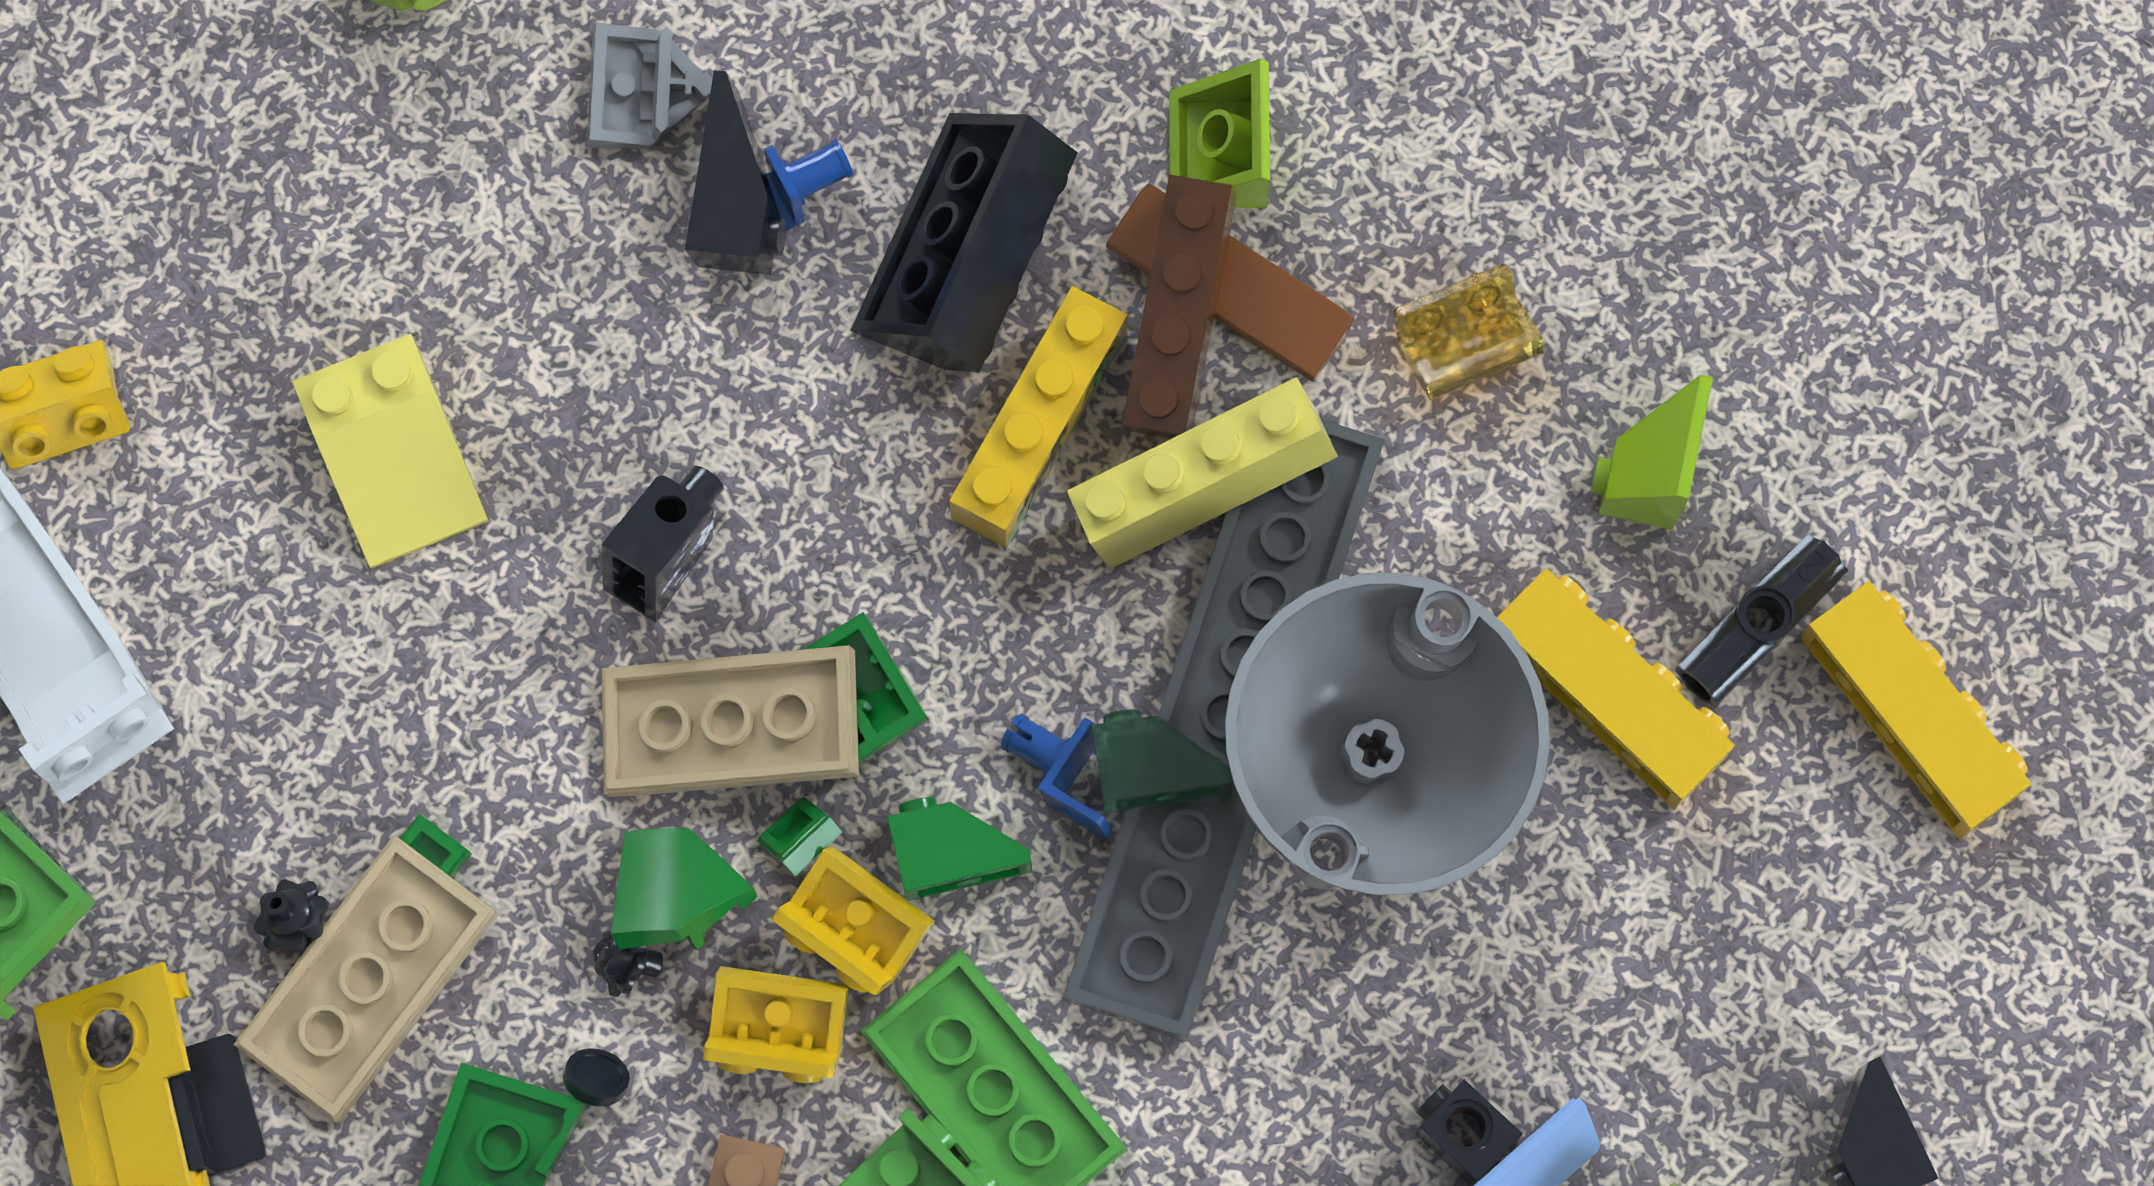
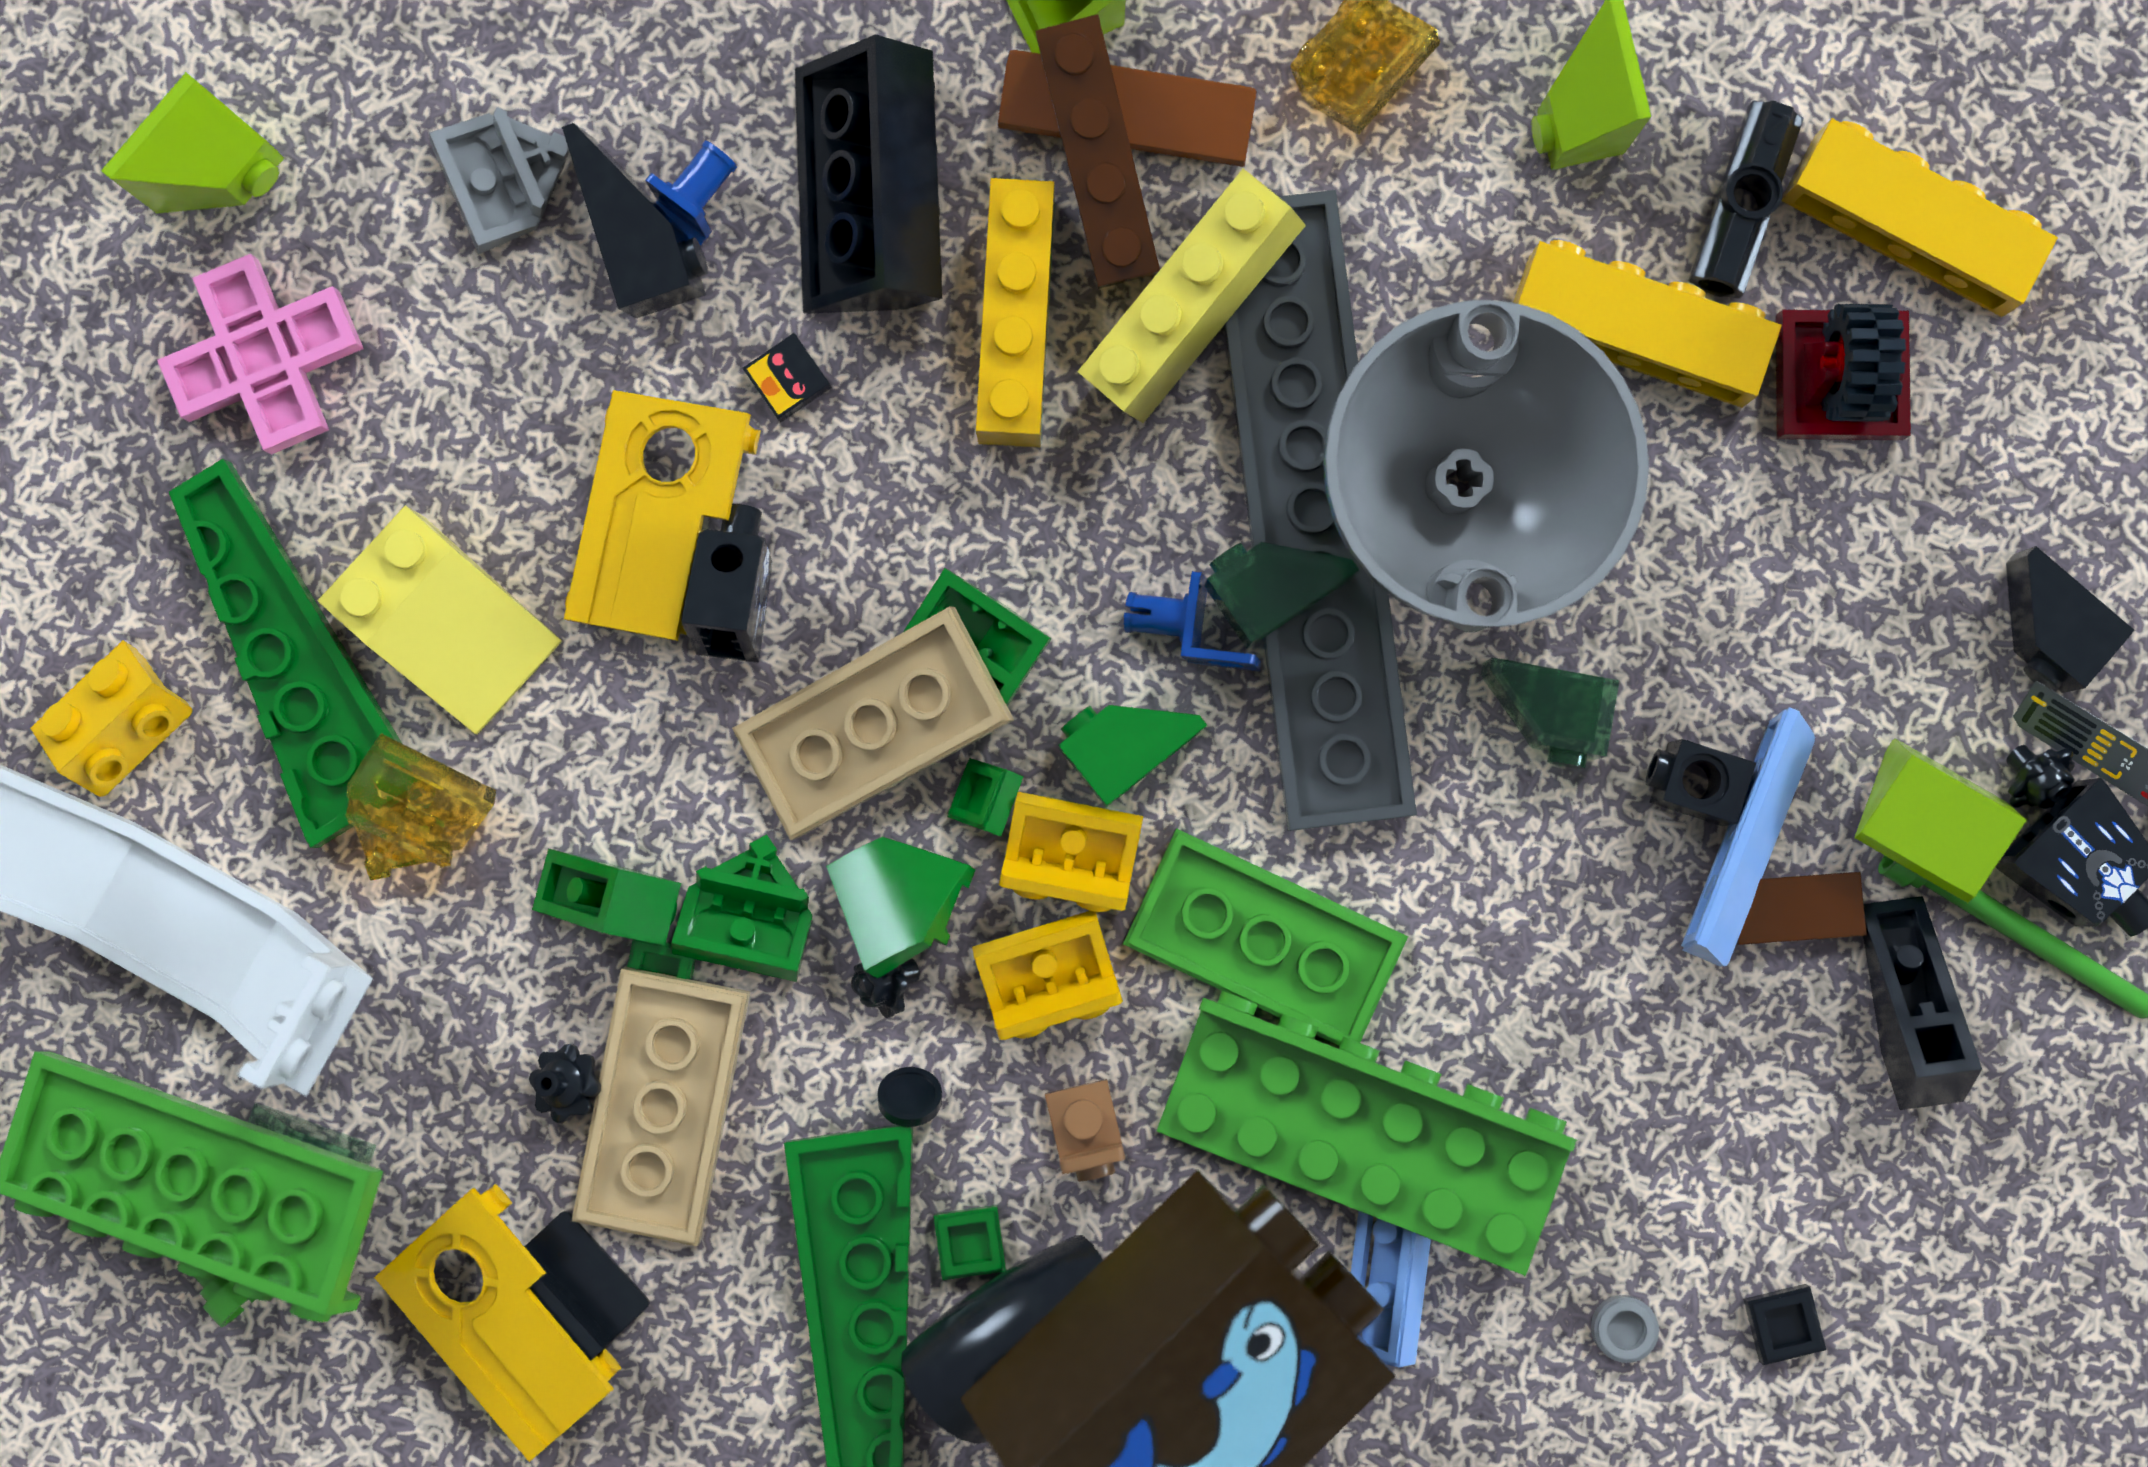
camera: 25 degrees left, 10 degrees up
(240, 470) = (285, 649): none -> green wing
(281, 604) = (412, 808): none -> clear yellow slope
(350, 146) = (260, 354): none -> bright pink plate
(414, 765) = (607, 897): none -> green slope
(530, 842) = (746, 915): none -> green slope
(612, 452) = (646, 531): none -> yellow piece
(806, 380) = (787, 377): none -> black tile
(1363, 1001) = (1556, 709): none -> clear green slope
(1780, 820) = (1843, 373): none -> plate

